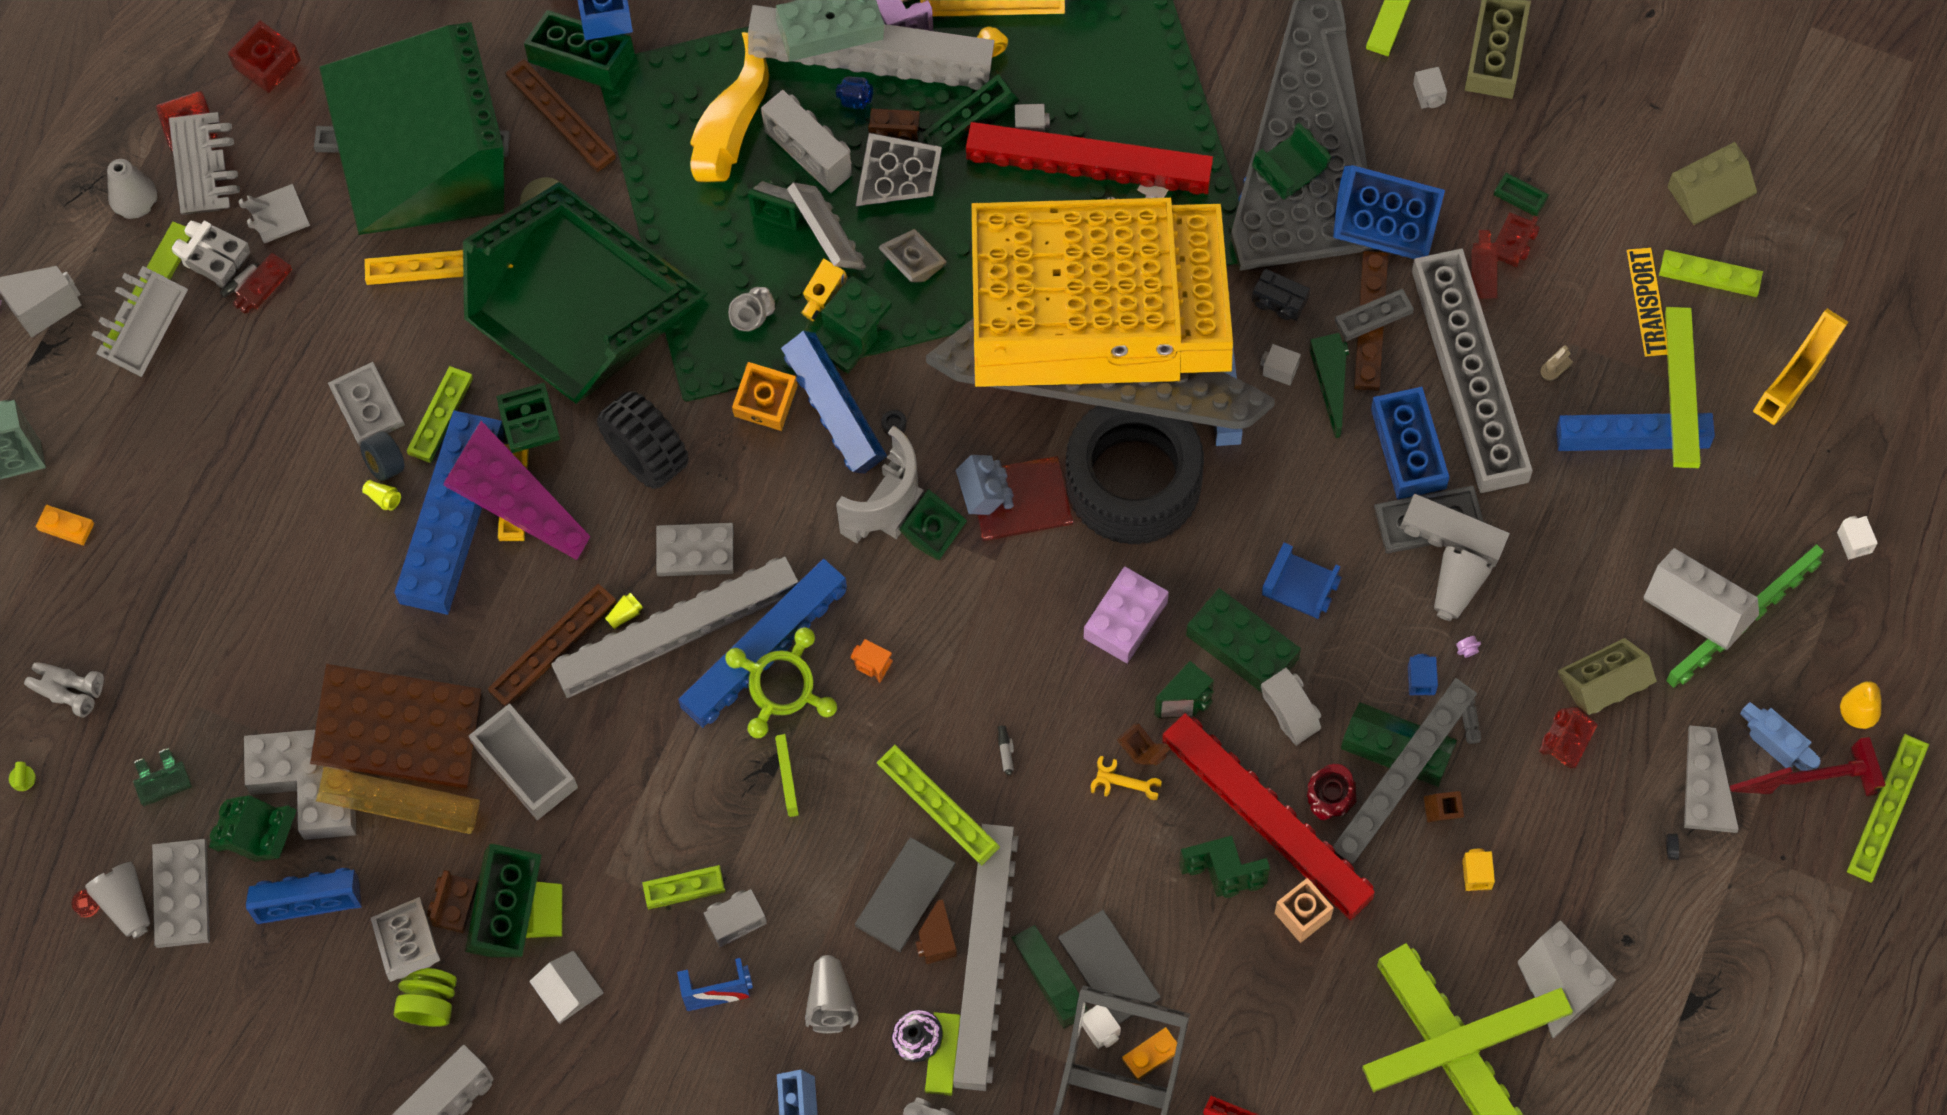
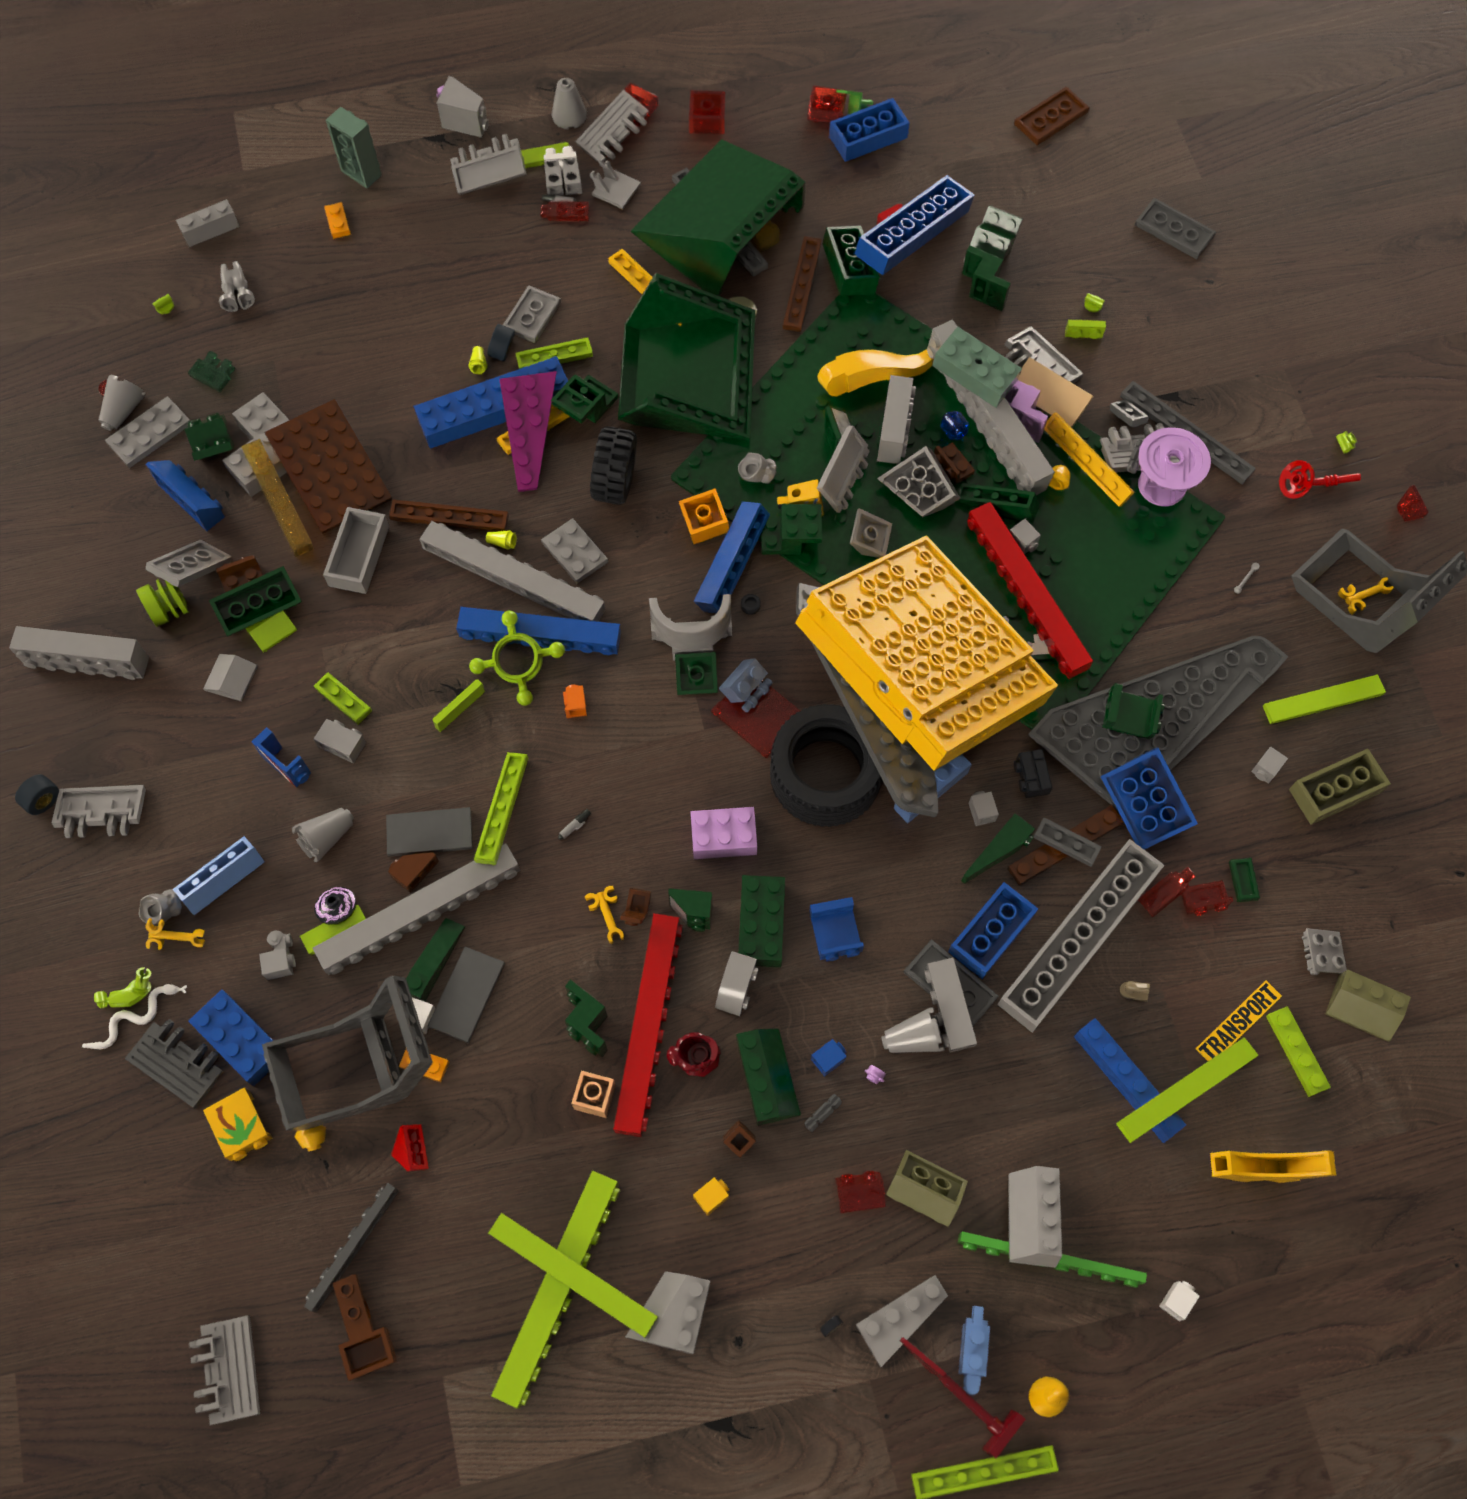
camera: 50 degrees right, 0 degrees up
(1404, 771) = (743, 1092): dark grey plate -> none
(1639, 179) = (1325, 951): none -> light grey hinge

